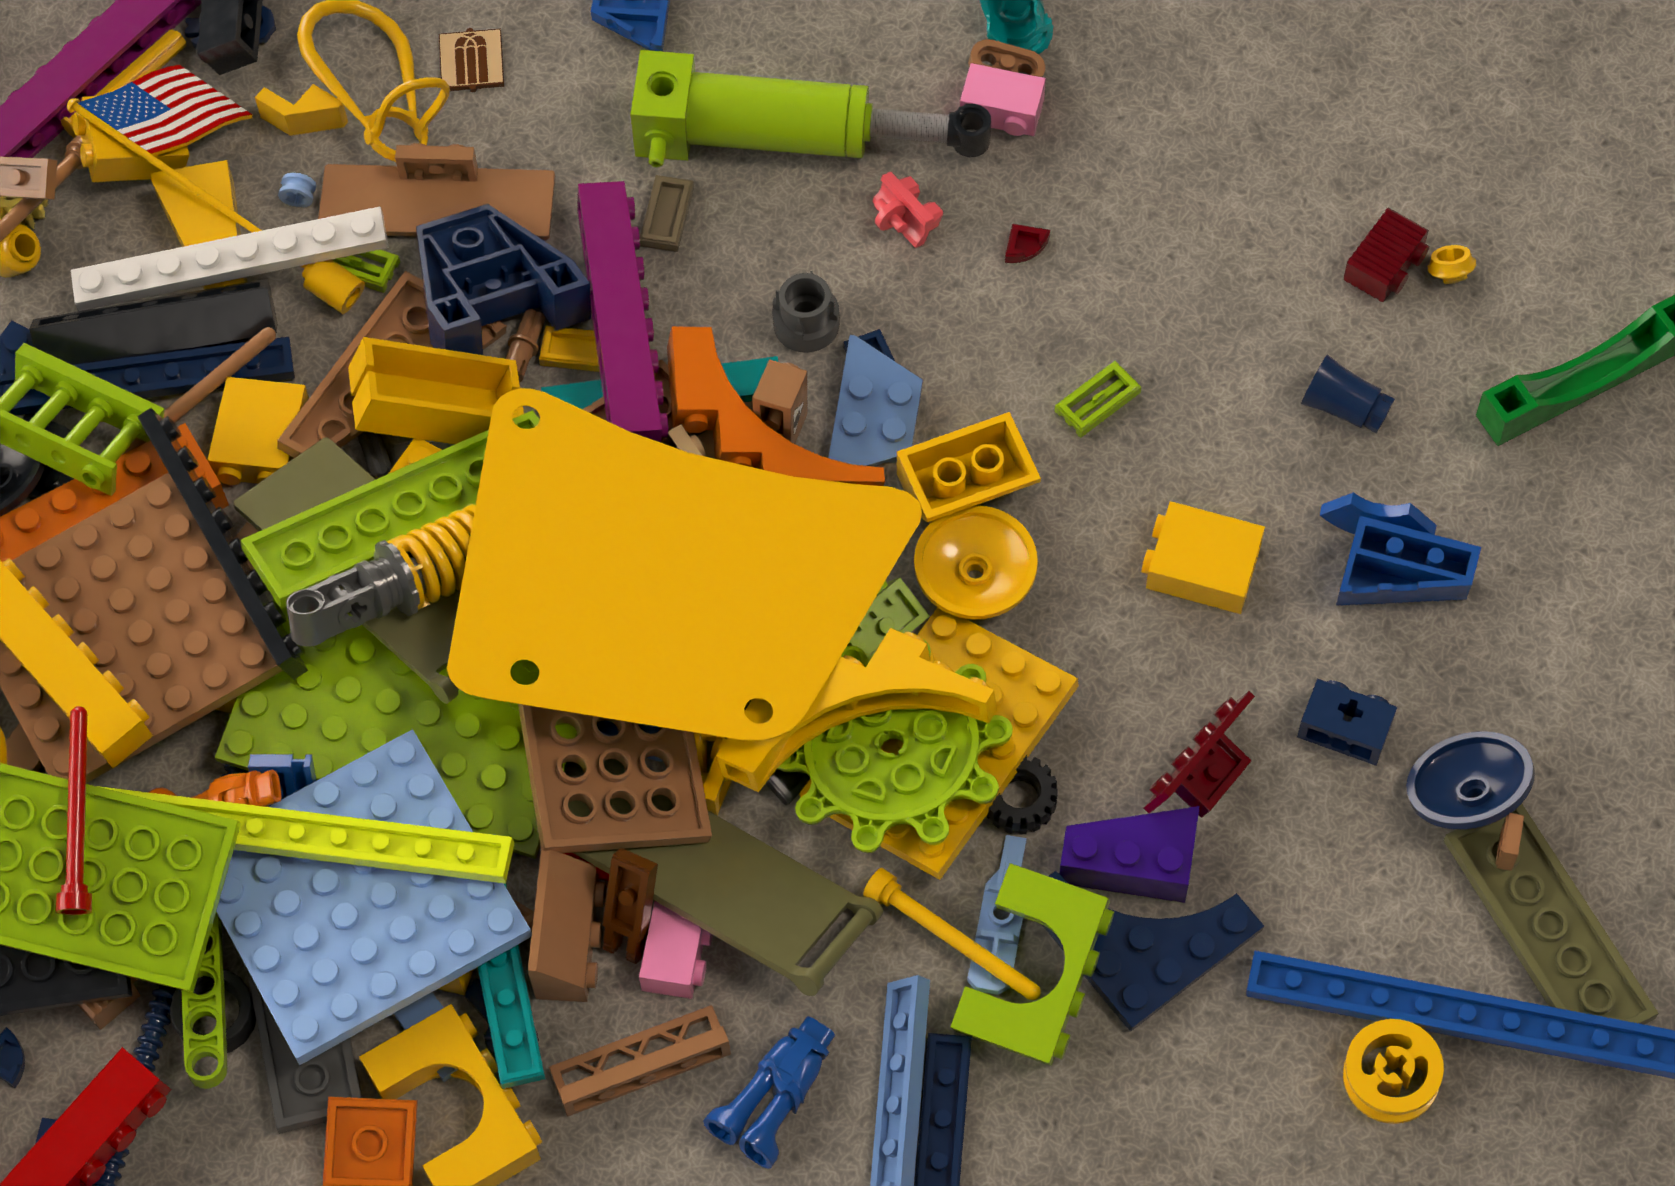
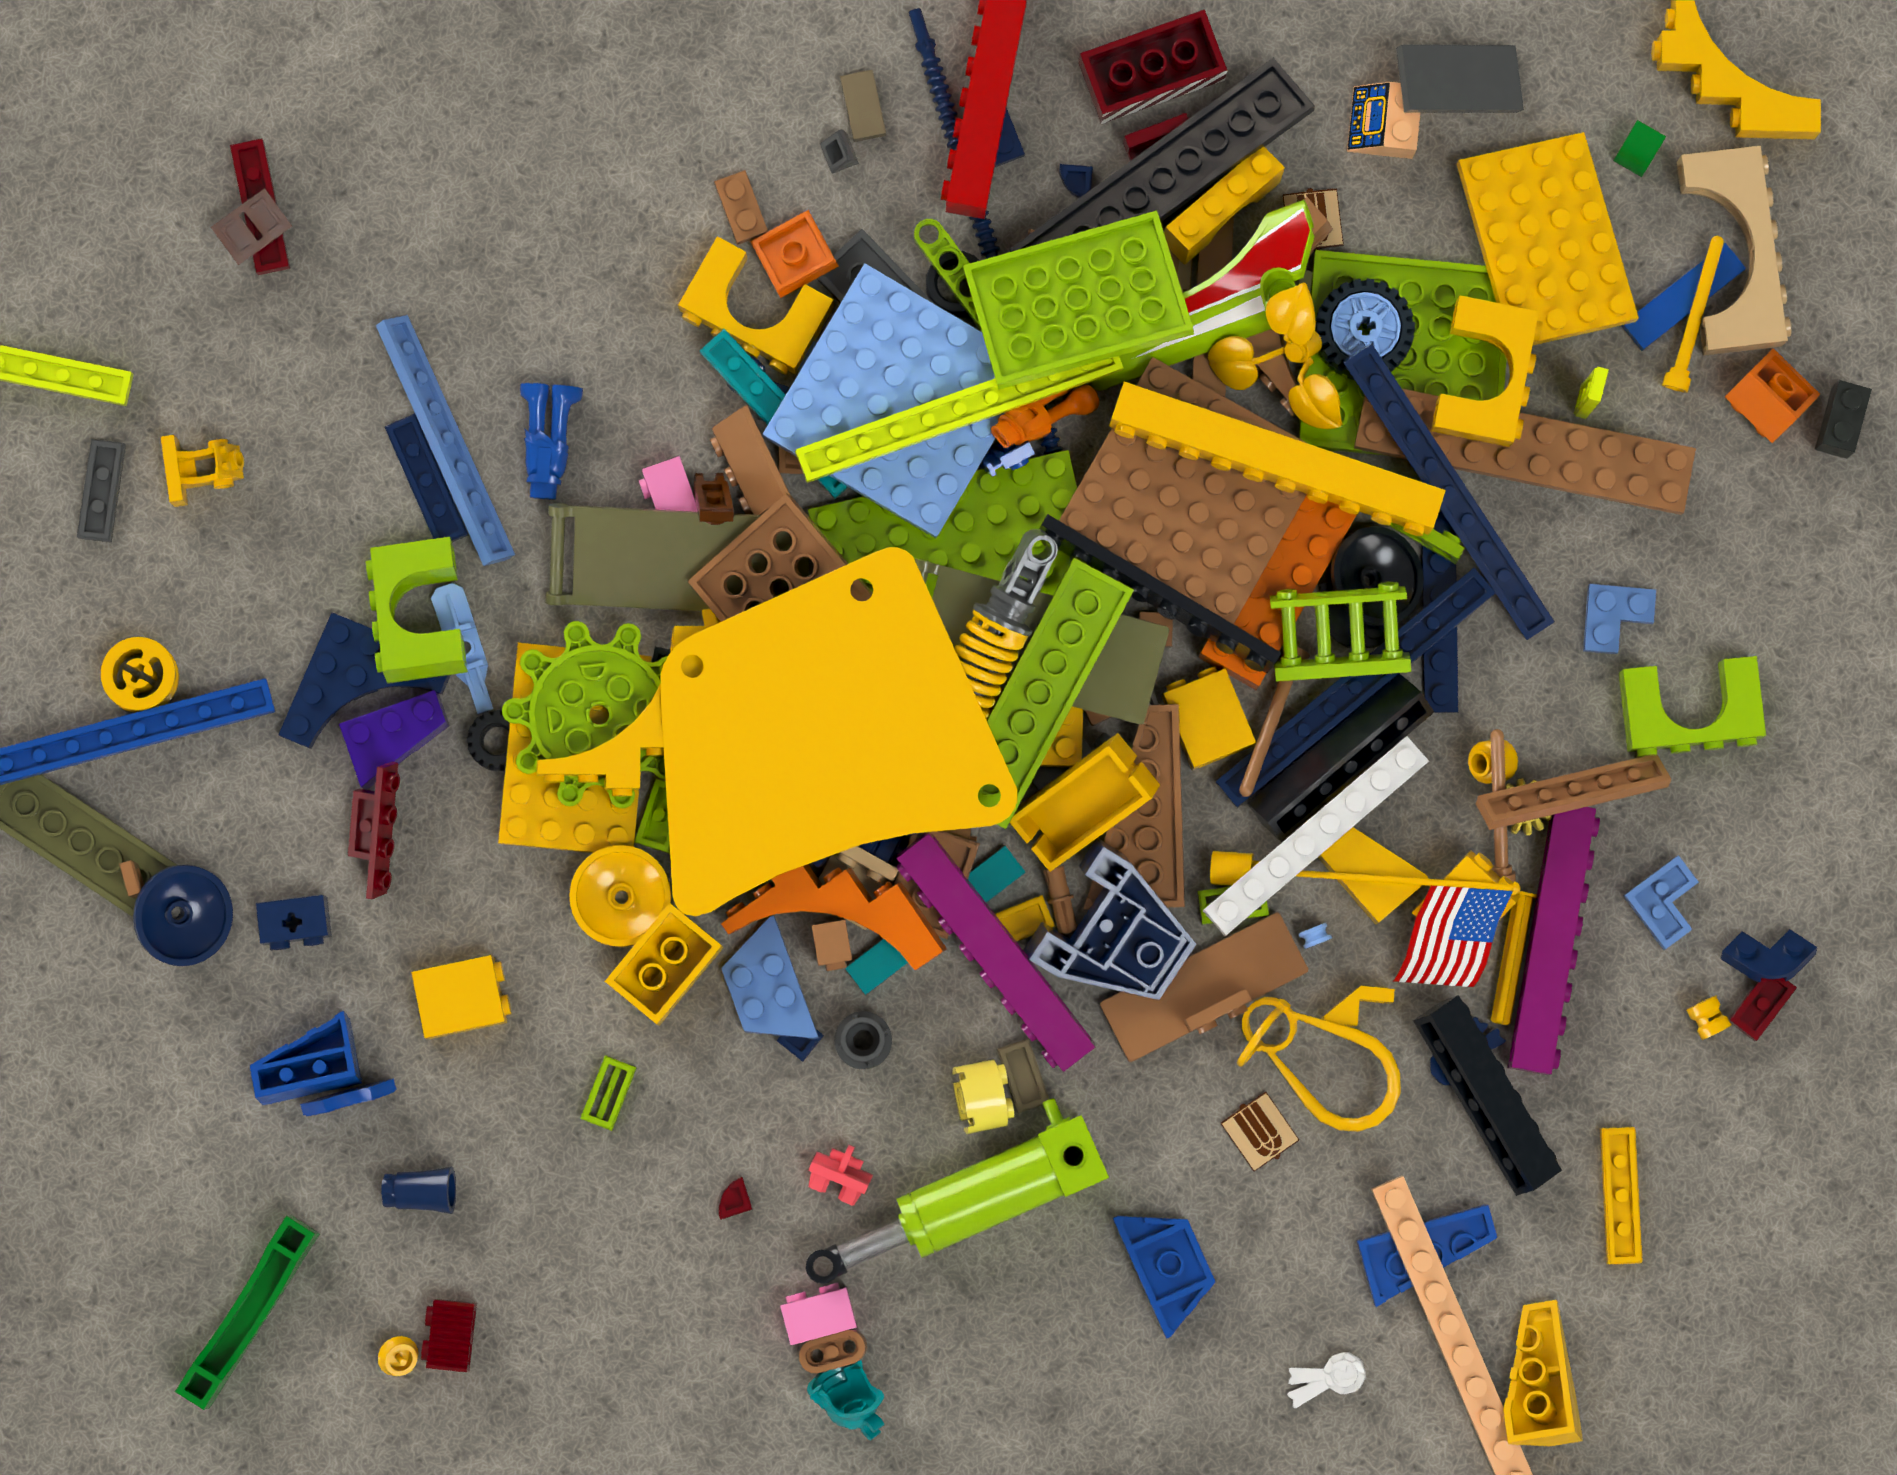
camera: 145 degrees right, 20 degrees up
(74, 894) = (1073, 272): red piece -> none
(643, 1069) = (642, 400): medium nougat fence -> none
(718, 199) = (982, 1096): none -> light yellow brick
(886, 891) = (550, 617): yellow piece -> none

